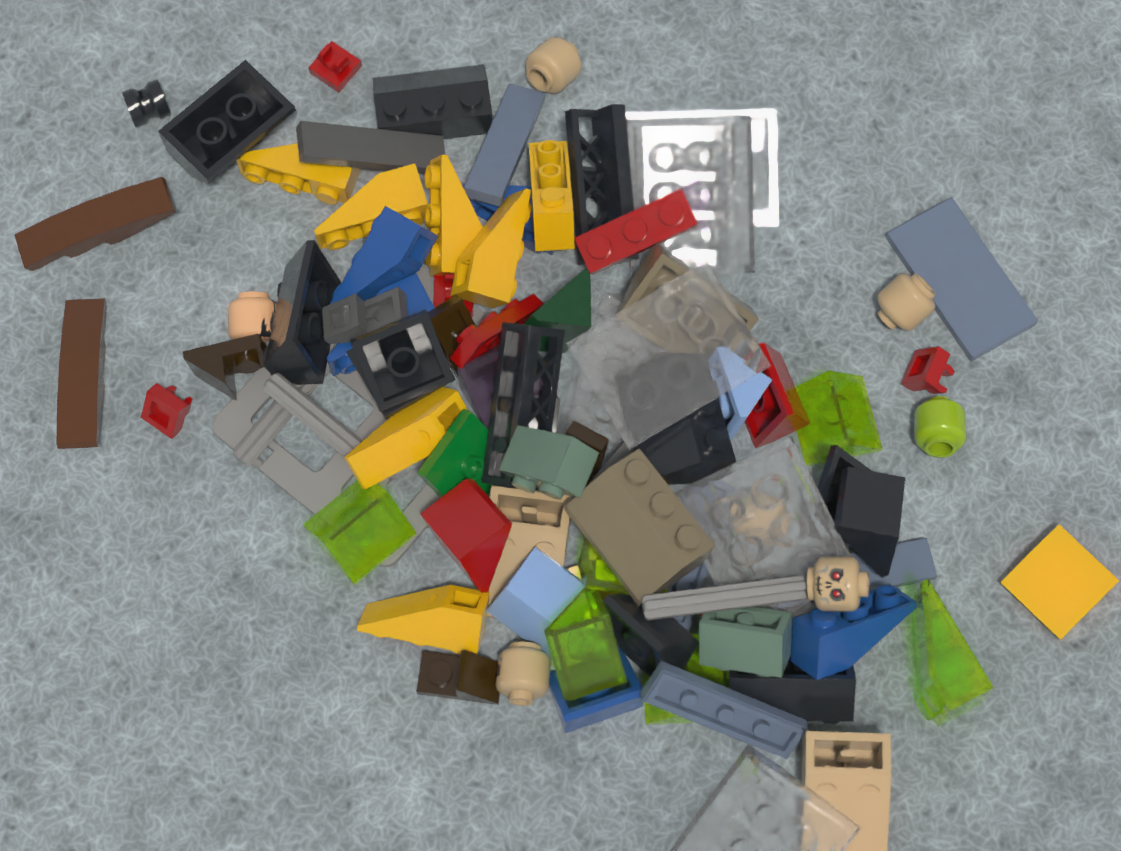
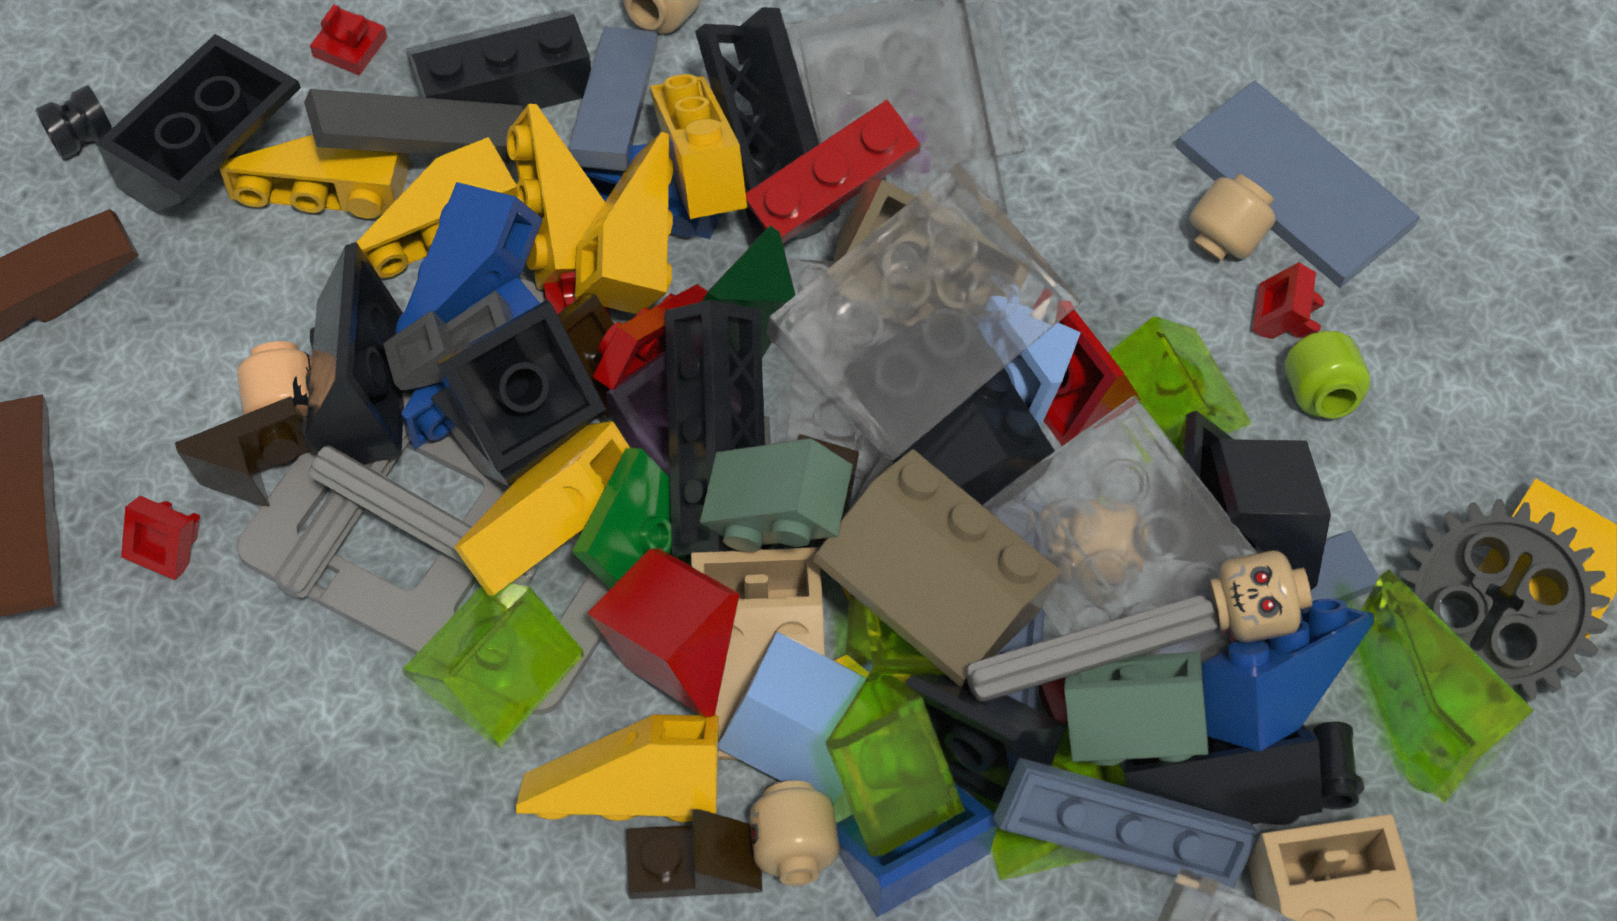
camera: 15 degrees left, 10 degrees down
(872, 694) = (1337, 766): none -> black pin
(1036, 632) = (1552, 630): none -> dark grey gear

